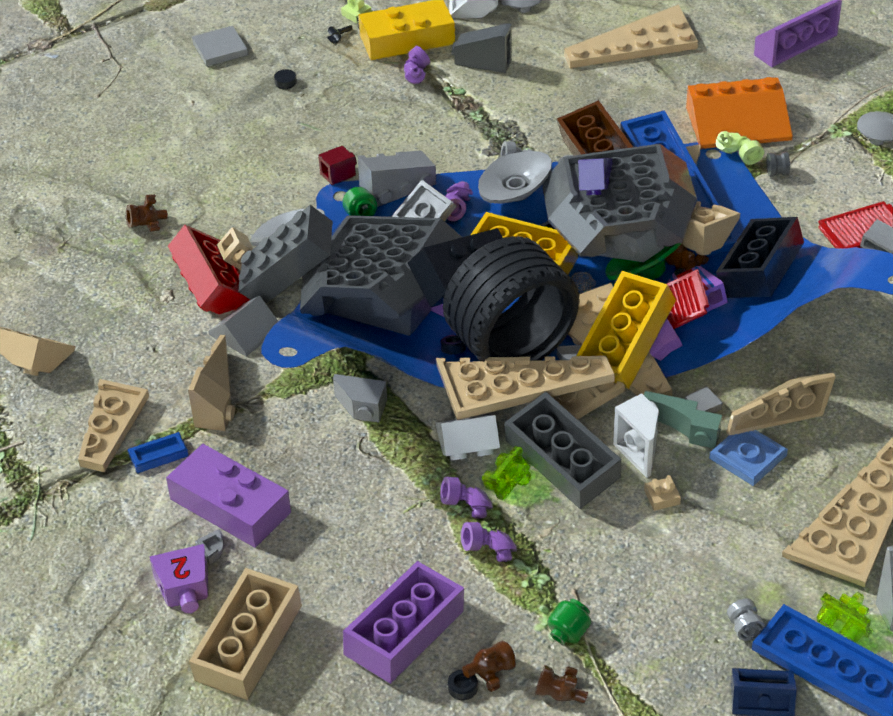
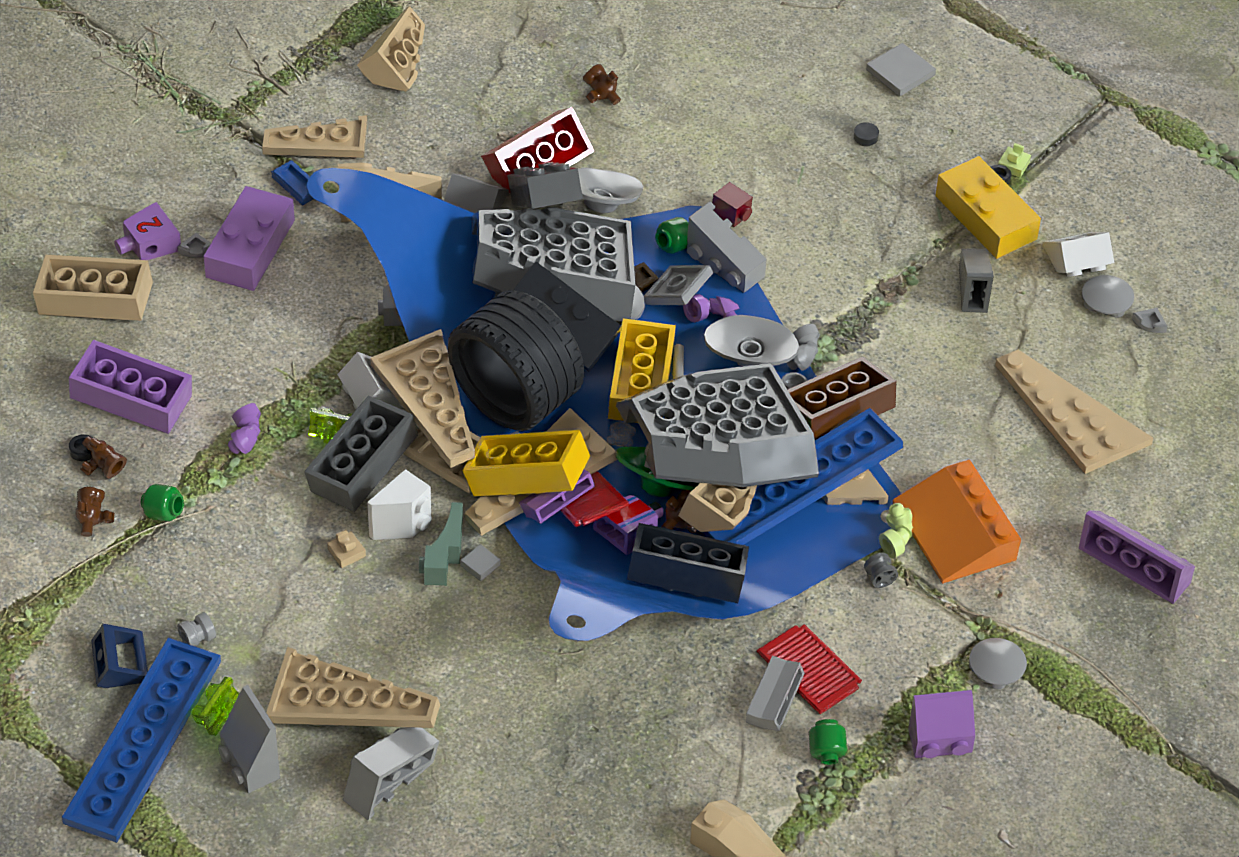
camera: 70 degrees right, 5 degrees up
(234, 246) = (576, 156): tan brick -> none
(336, 33) = (959, 152): black hand -> none
(416, 62) = (916, 231): medium lavender arm -> none
(453, 491) = (294, 411): medium lavender arm -> none
(594, 175) = (720, 378): slope -> none
(748, 455) = (420, 609): medium blue tile -> none
(787, 403) = (488, 623): tan wedge -> none

